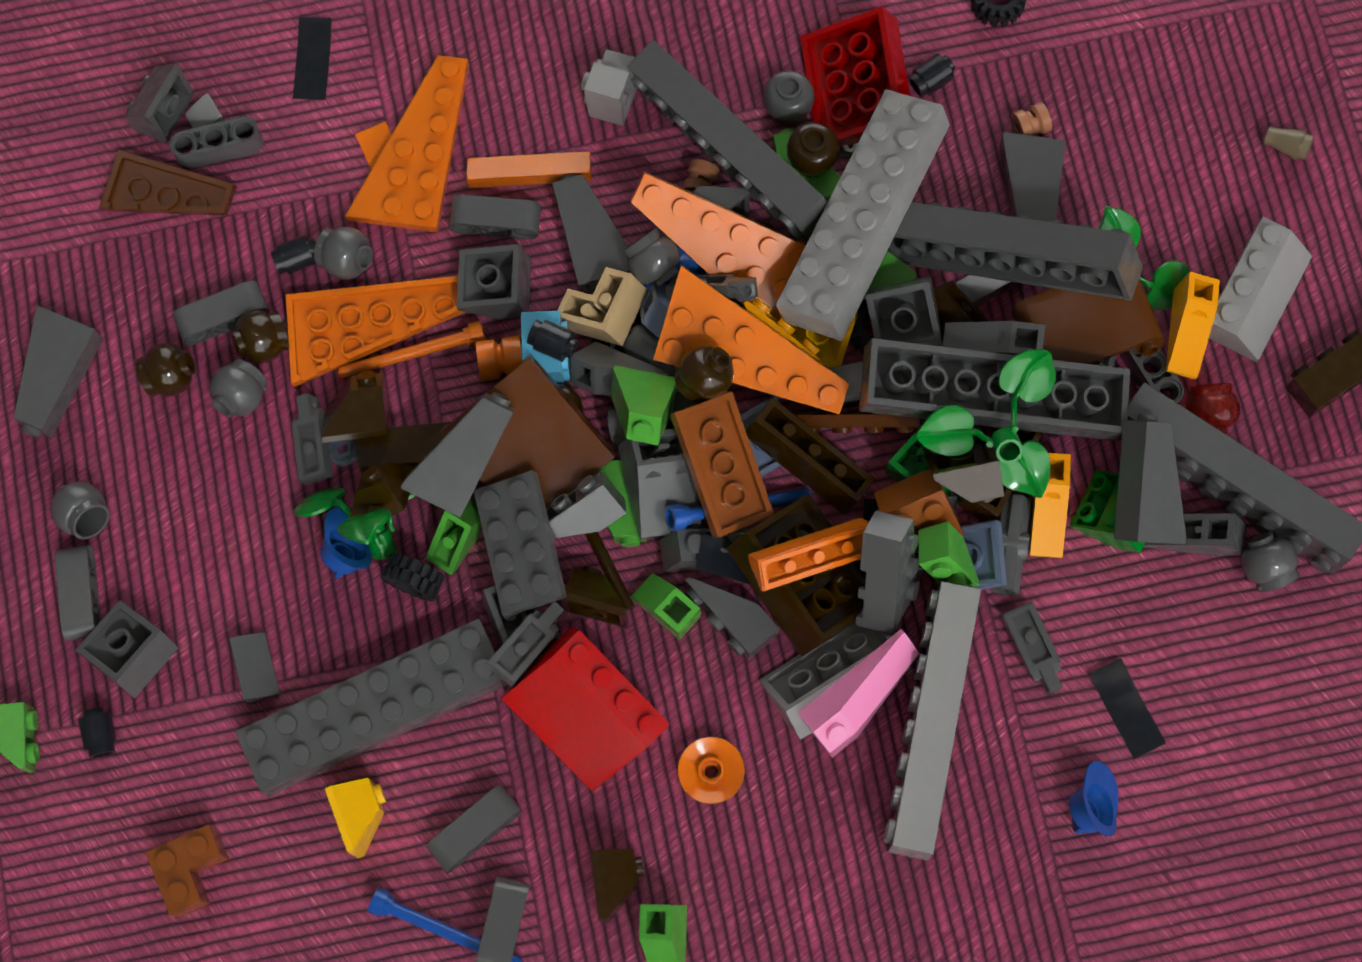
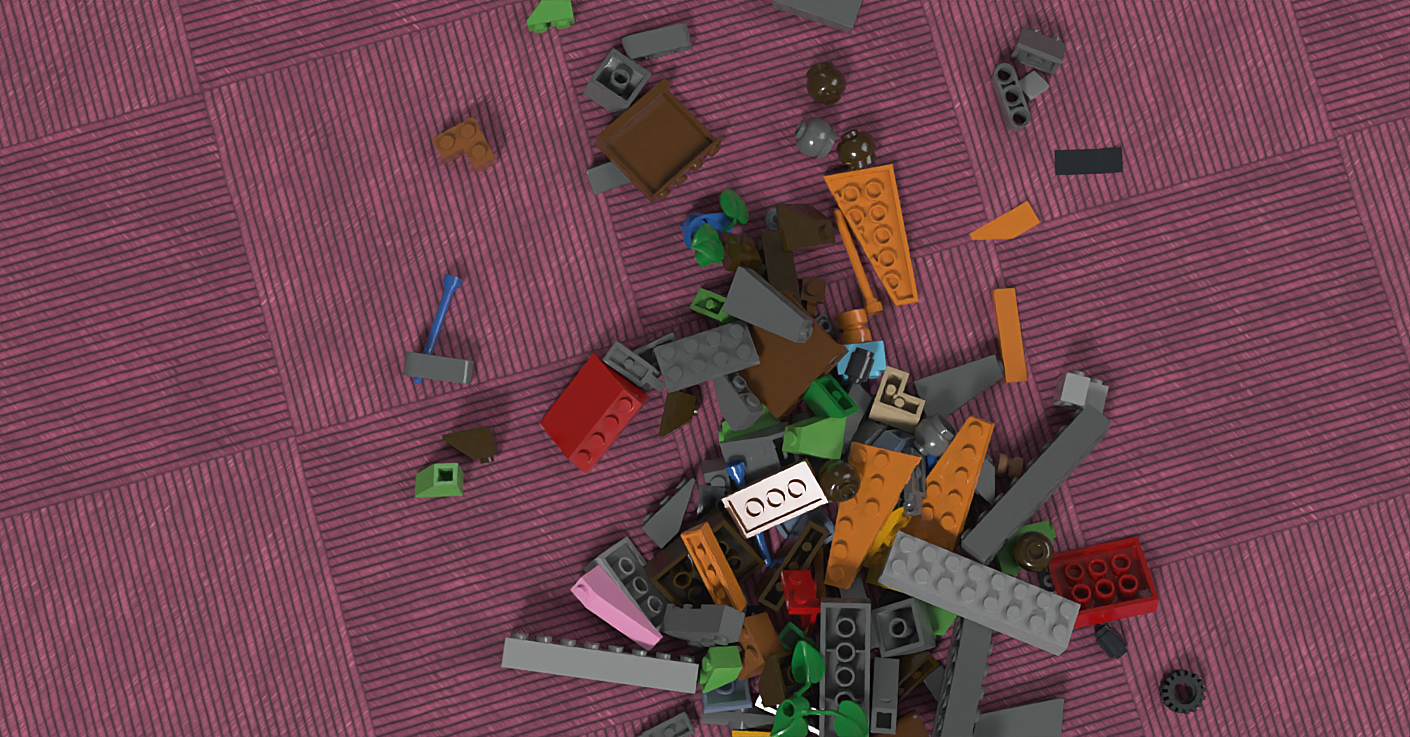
camera: 80 degrees right, 10 degrees up
(79, 510) = (716, 36): dark grey piece -> none
(97, 732) = (557, 71): black brick -> none
(156, 187) = (971, 58): reddish brown wing -> none
(218, 312) = (875, 117): dark grey beam -> none
(218, 599) = (657, 143): none -> reddish brown panel
(294, 255) = (925, 167): black brick -> none
(311, 454) = (788, 192): dark grey hinge -> none
(343, 252) = (927, 203): dark grey piece -> none
(357, 812) = (510, 259): yellow slope -> none
(370, 709) = (586, 261): dark grey brick -> none
(412, 577) = (682, 280): black tyre -> none
(414, 167) = (1003, 248): orange wing -> none
(444, 407) = (813, 292): none -> reddish brown plate
(474, 828) = (506, 342): dark grey beam -> none
(494, 281) = (912, 318): dark grey slope -> none
(495, 217) = (966, 313): dark grey beam -> none
(594, 384) = (829, 399): none -> green slope
(609, 569) = (696, 424): dark brown bar -> none
(667, 605) = (675, 464): bright green slope -> none
(715, 753) = (545, 509): orange dish -> none
(788, 97) = (1081, 530): dark grey piece -> none
(859, 438) = (801, 597): none -> red bracket
(1032, 121) = (1077, 720): nougat wheel -> none

